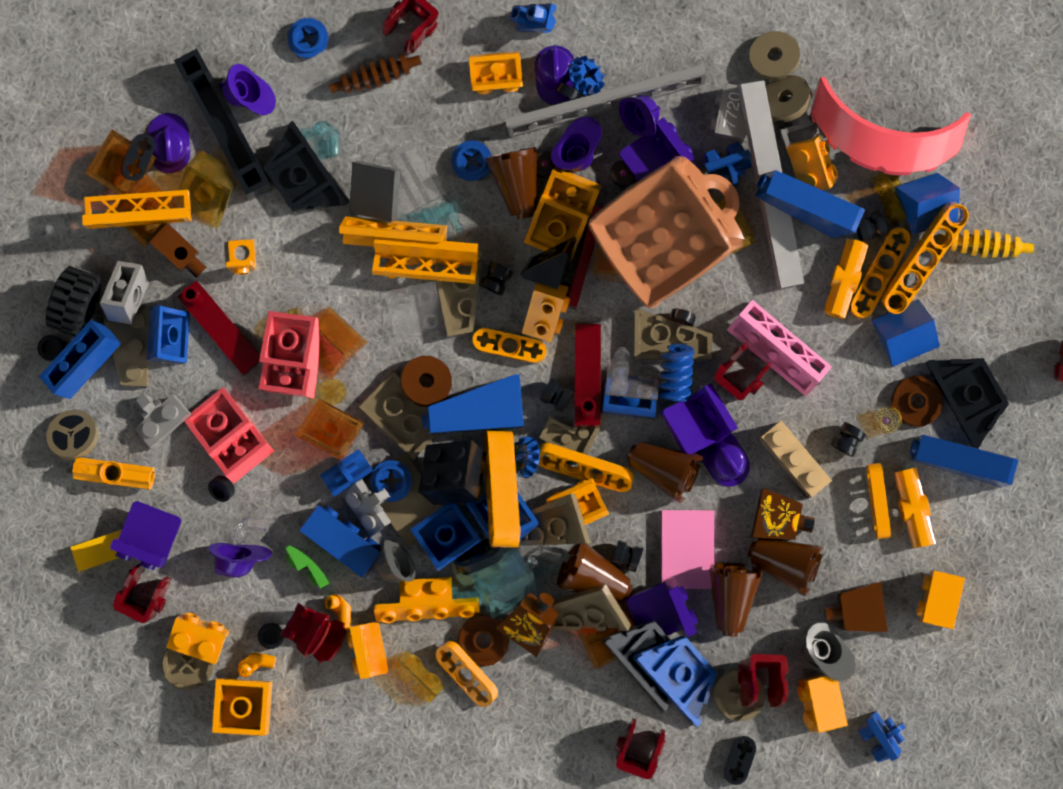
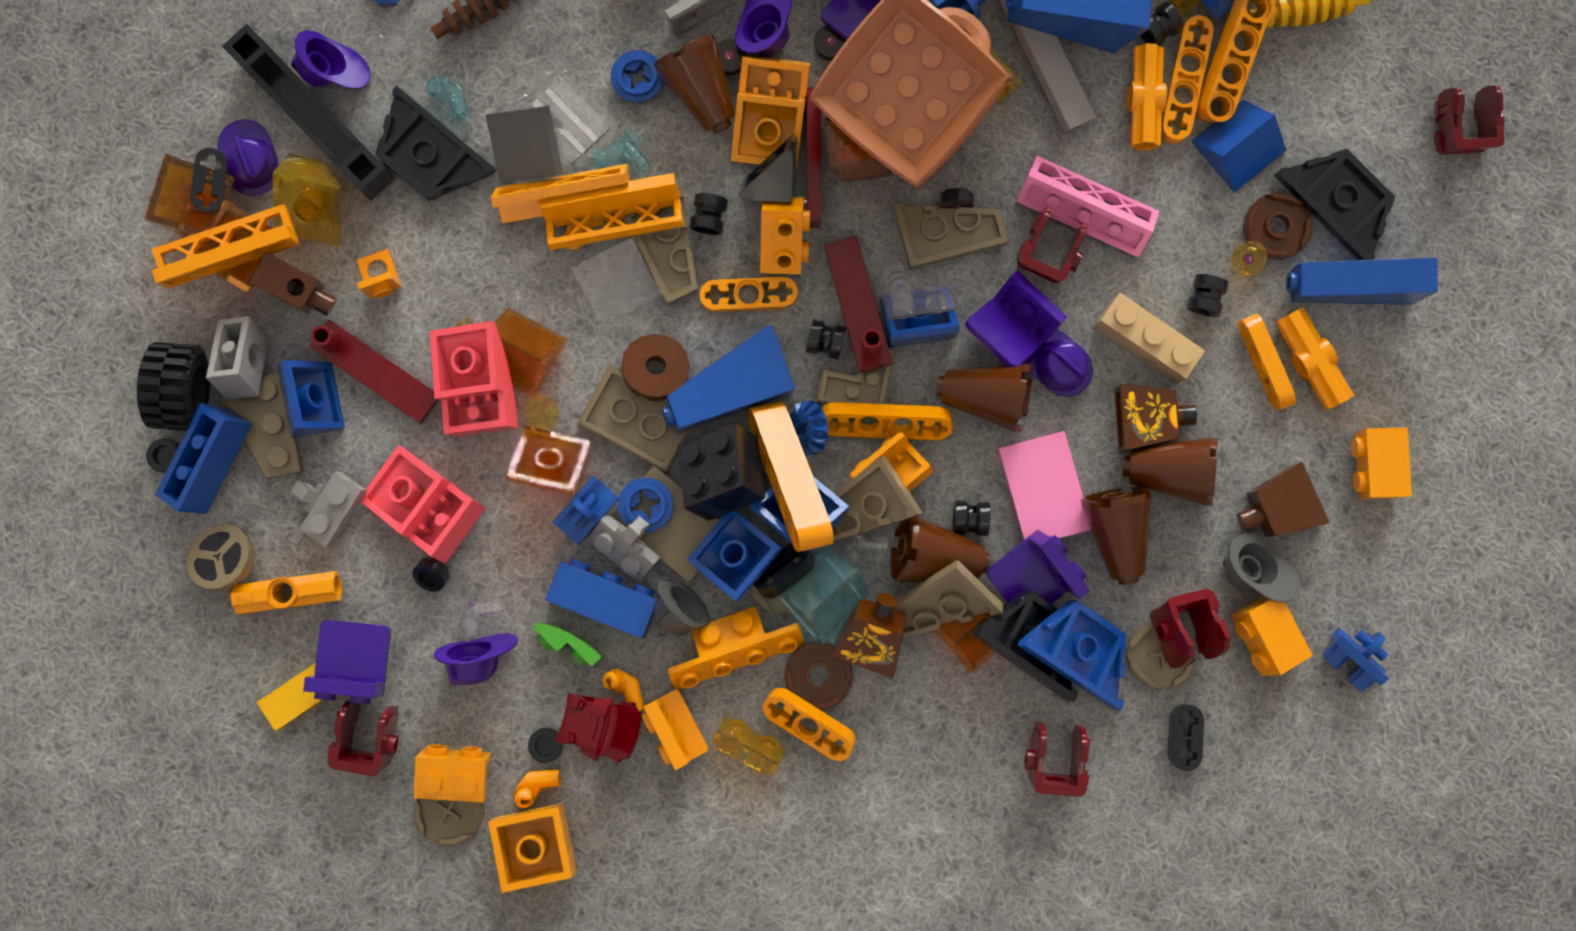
camera: 20 degrees left, 0 degrees up
(678, 373) = (972, 269): blue piece -> none

